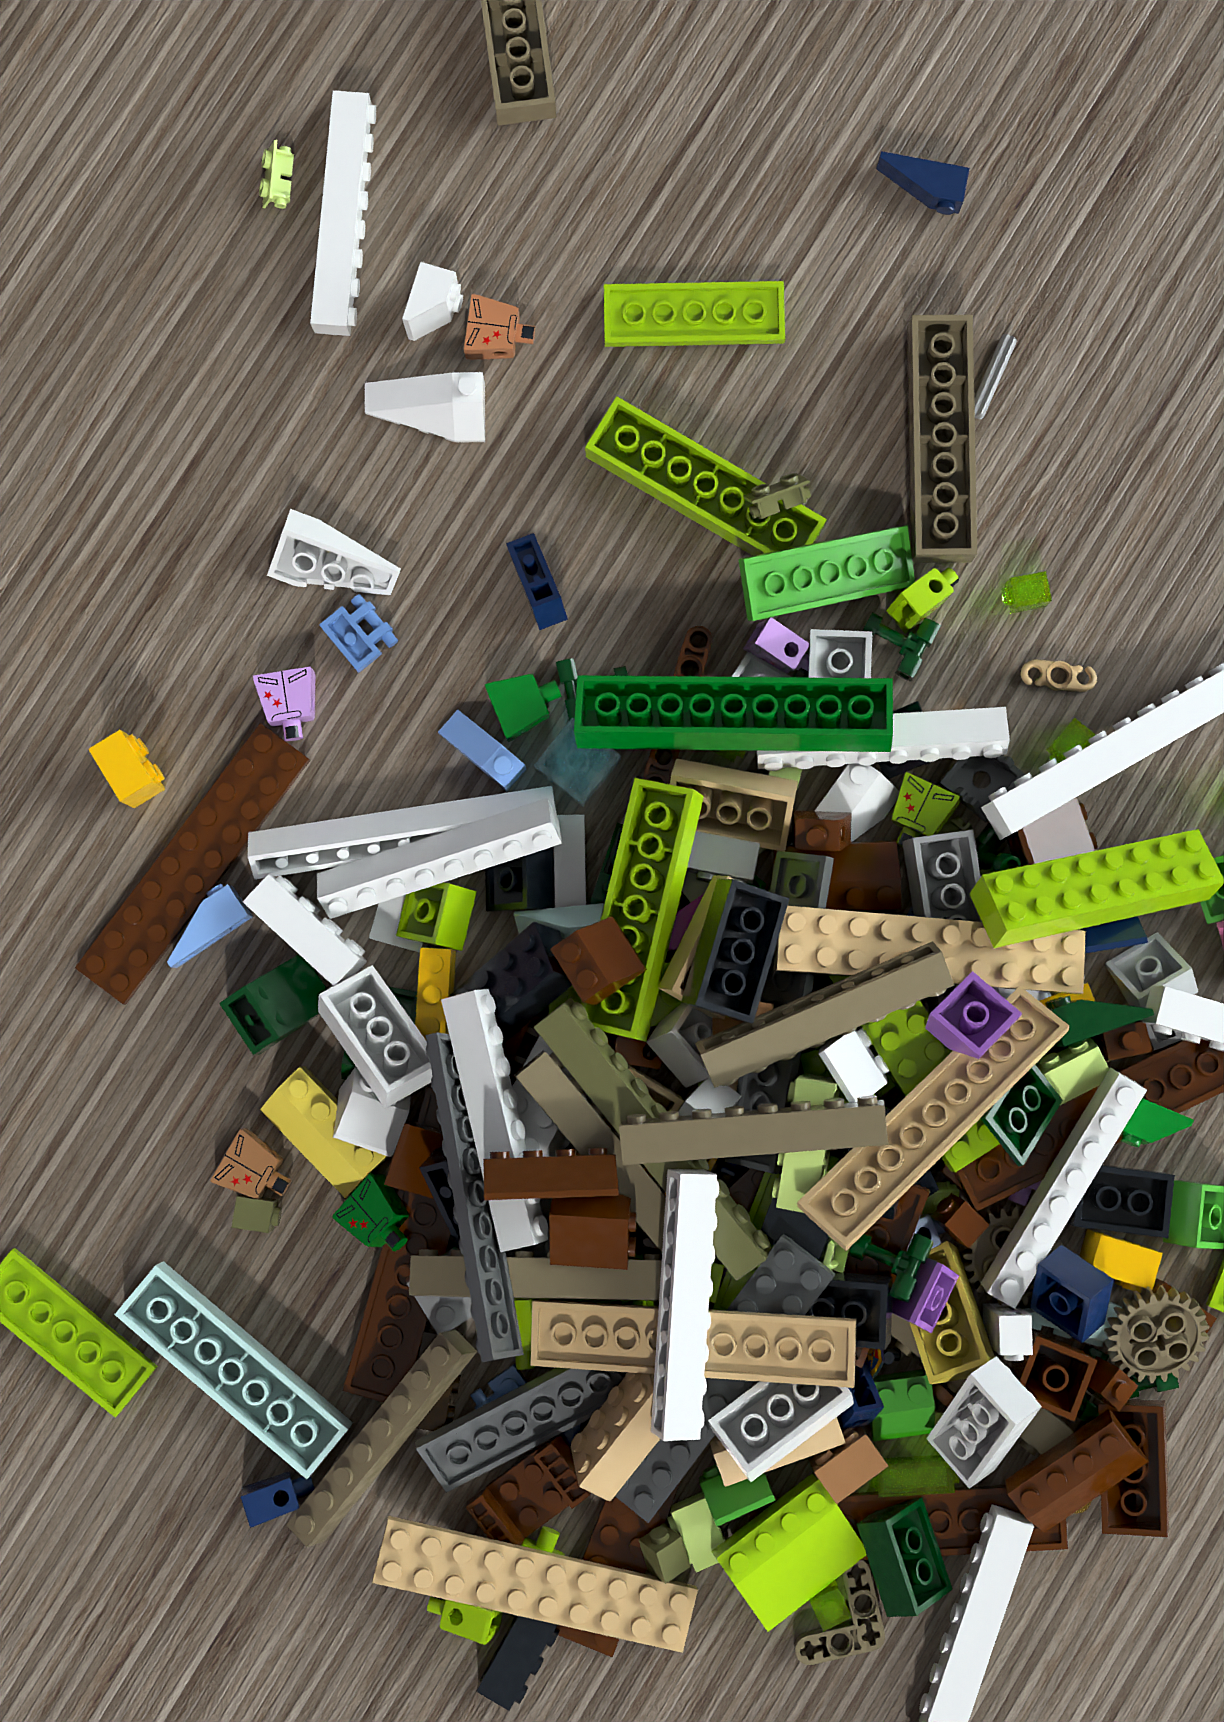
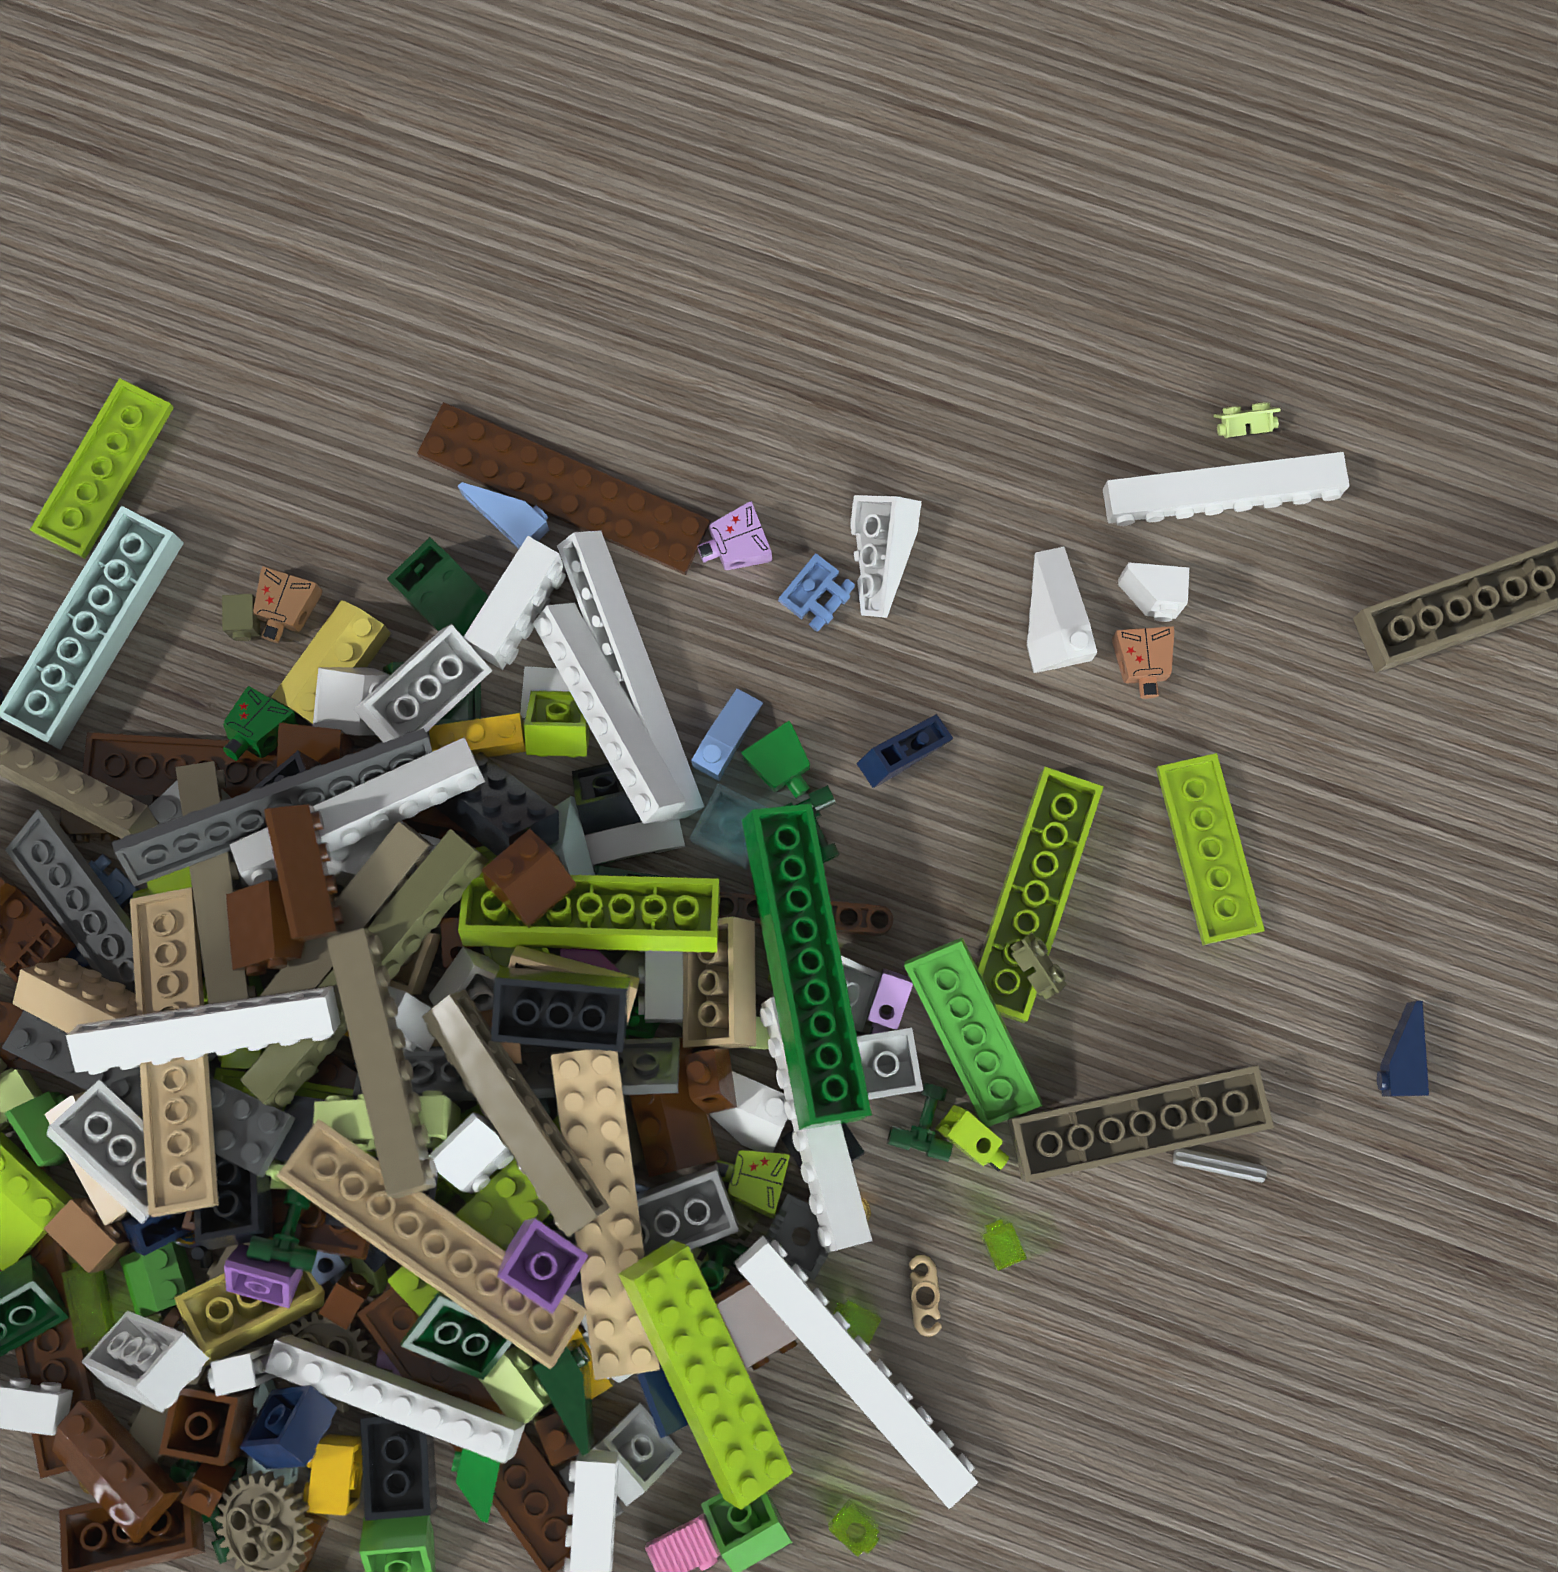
camera: 75 degrees right, 5 degrees down
(127, 769) = (637, 406): yellow brick -> none

